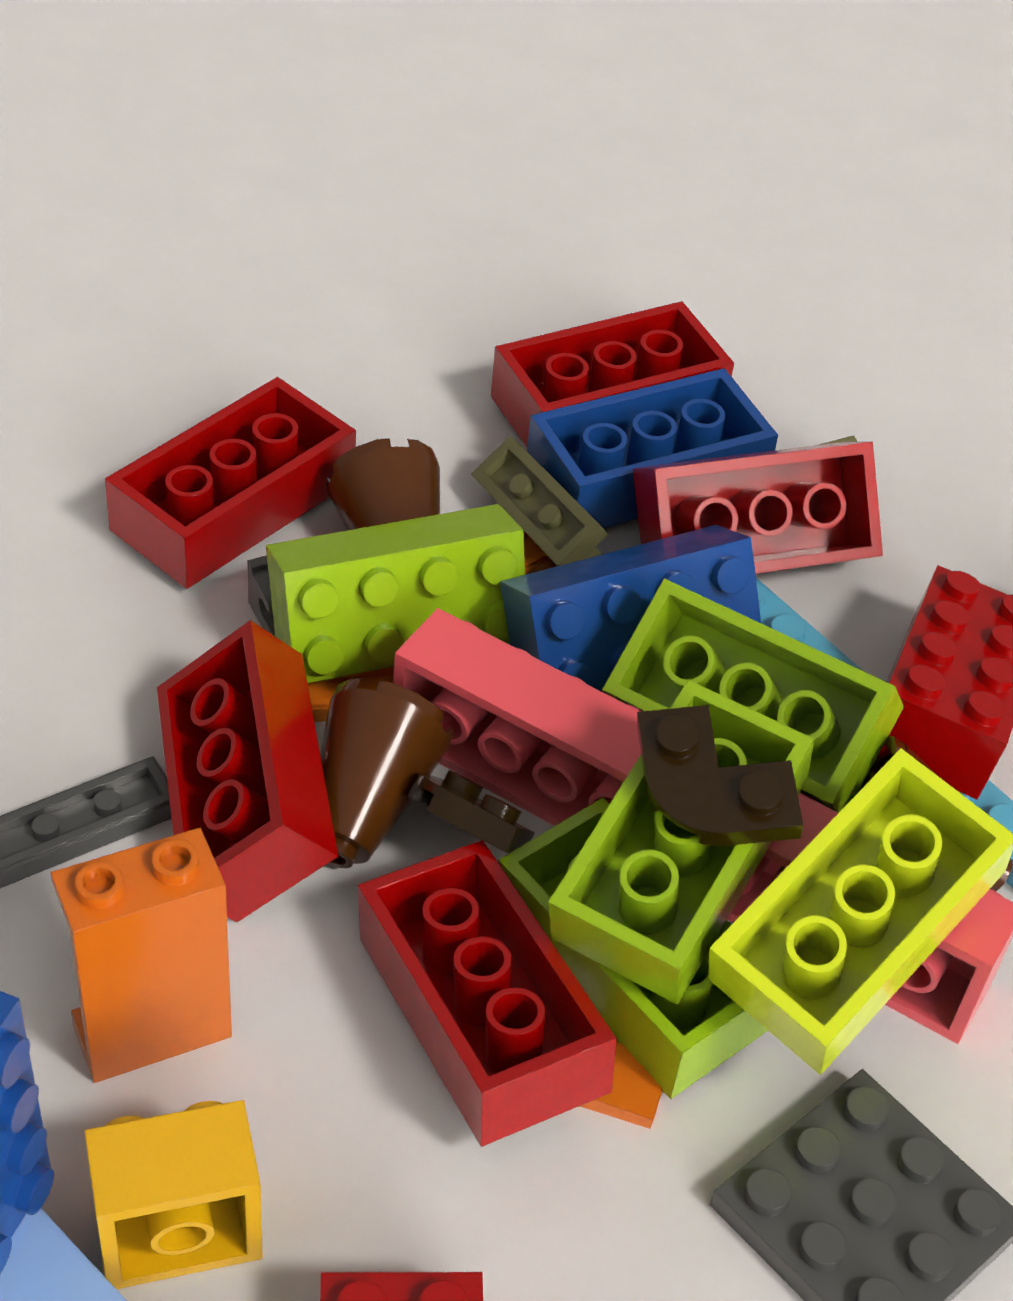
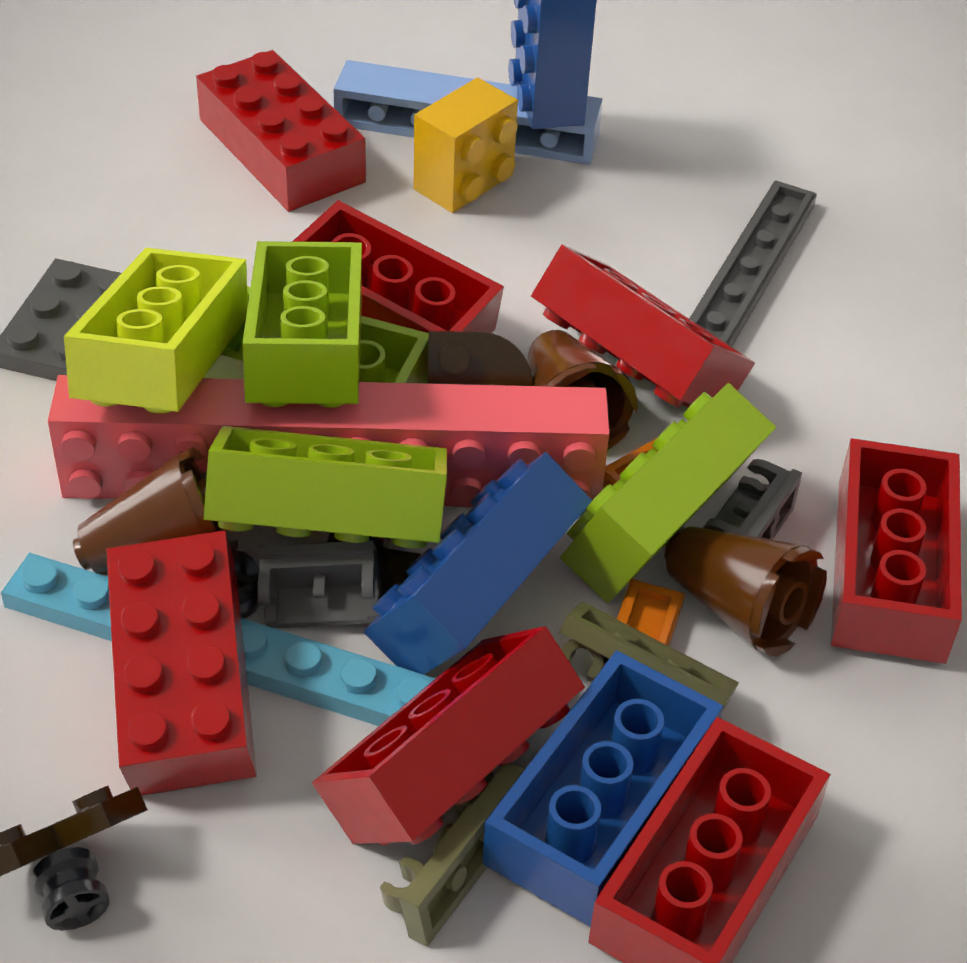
camera: 150 degrees right, 0 degrees up
(147, 952) = (556, 174): orange panel -> none
(713, 801) = (311, 289): dark brown plate -> none

